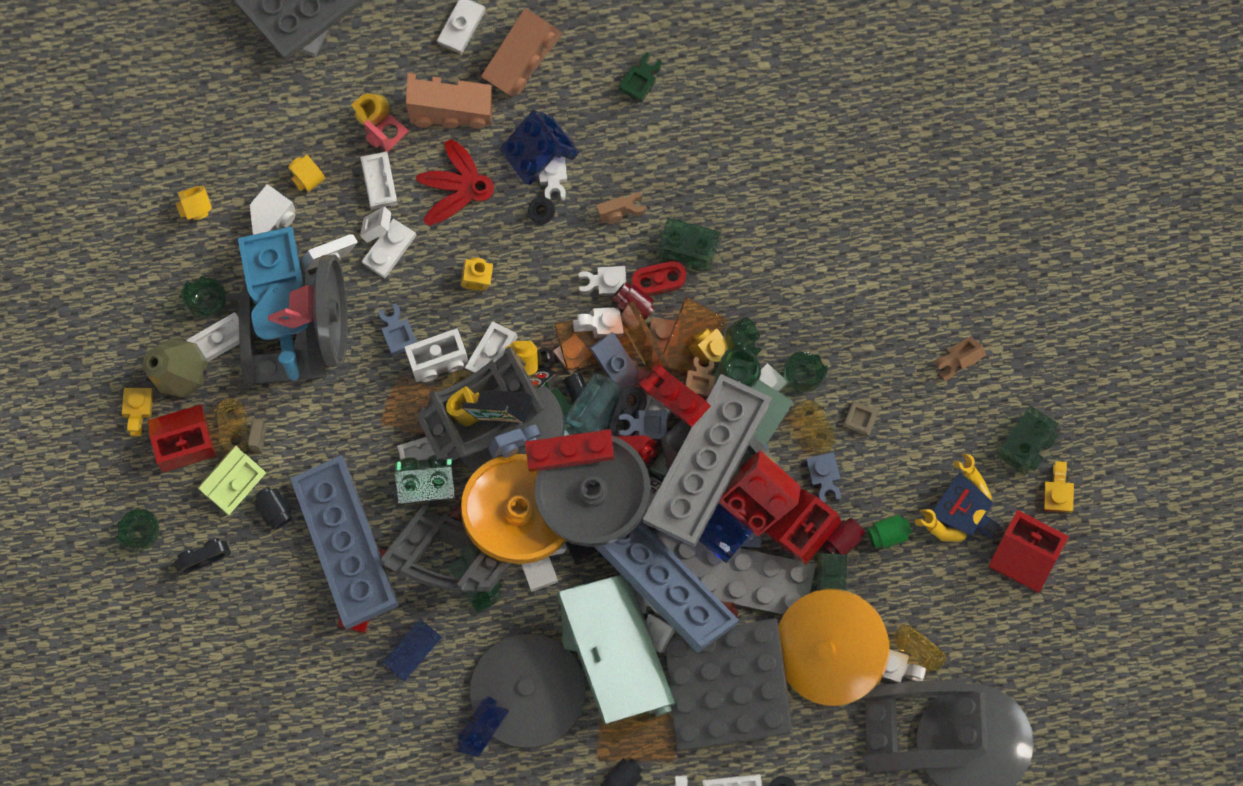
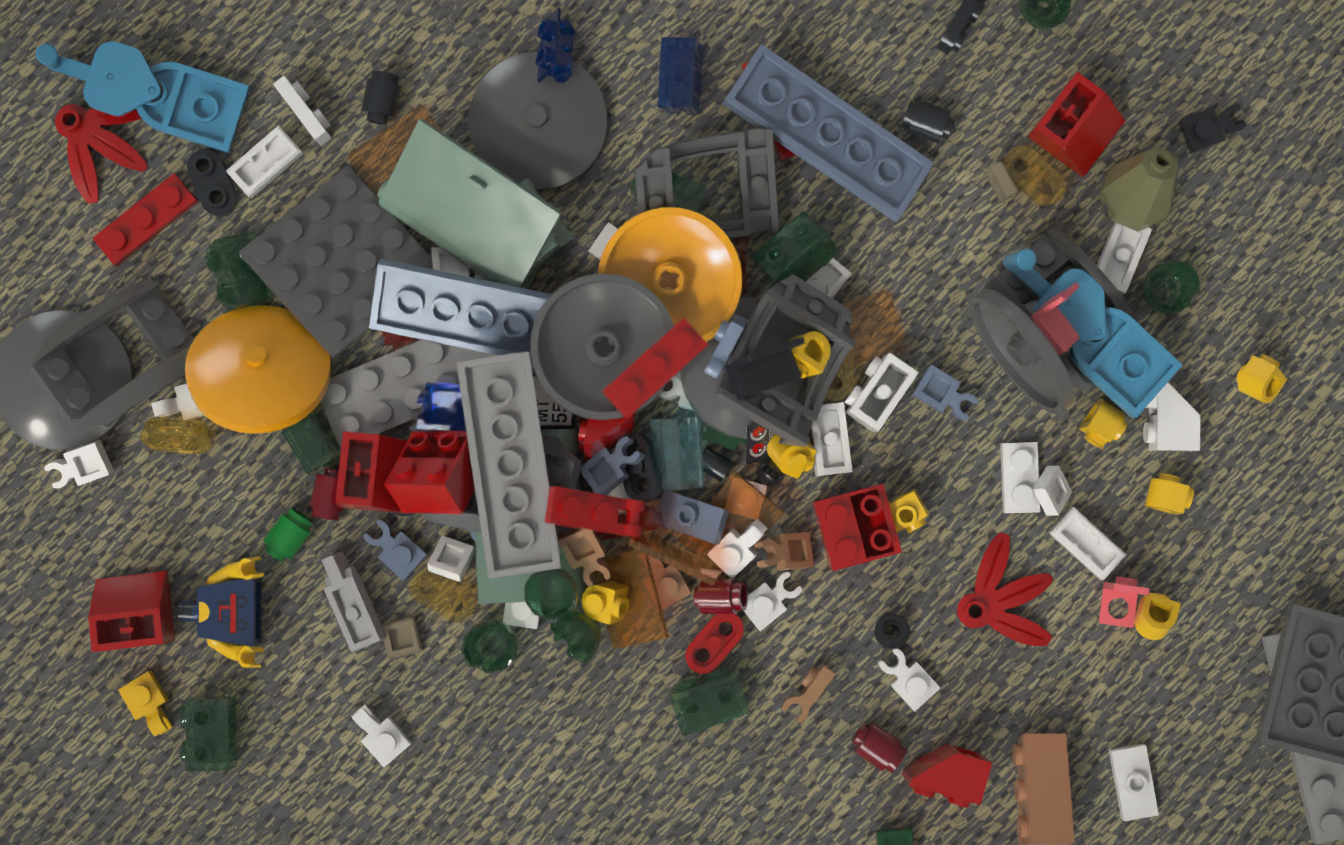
camera: 140 degrees right, 15 degrees up
(99, 381) = (1207, 129): none -> black plate
(136, 406) = (1147, 129): yellow plate -> none
(231, 480) = (991, 118): yellowish green plate -> none
(310, 238) = (1103, 424): none -> yellow plate
(339, 247) = (1076, 421): white plate -> none
(448, 104) = (1077, 679): nougat wedge -> none
(516, 285) = (856, 527): none -> red slope
(536, 145) = (948, 699): clear blue bracket -> none
(569, 100) = (952, 772): none -> red slope
(570, 299) = (787, 551): none -> medium nougat plate
(602, 147) = (878, 747): none -> dark red brick
(791, 443) = (451, 558): none -> white plate
(809, 725) = (236, 281): none -> clear green bracket
(878, 460) = (351, 603): none -> light grey hinge
(917, 363) = (384, 738): none -> white plate
(962, 354) = (341, 781): medium nougat plate -> none
(996, 674) = (82, 463): none -> white plate

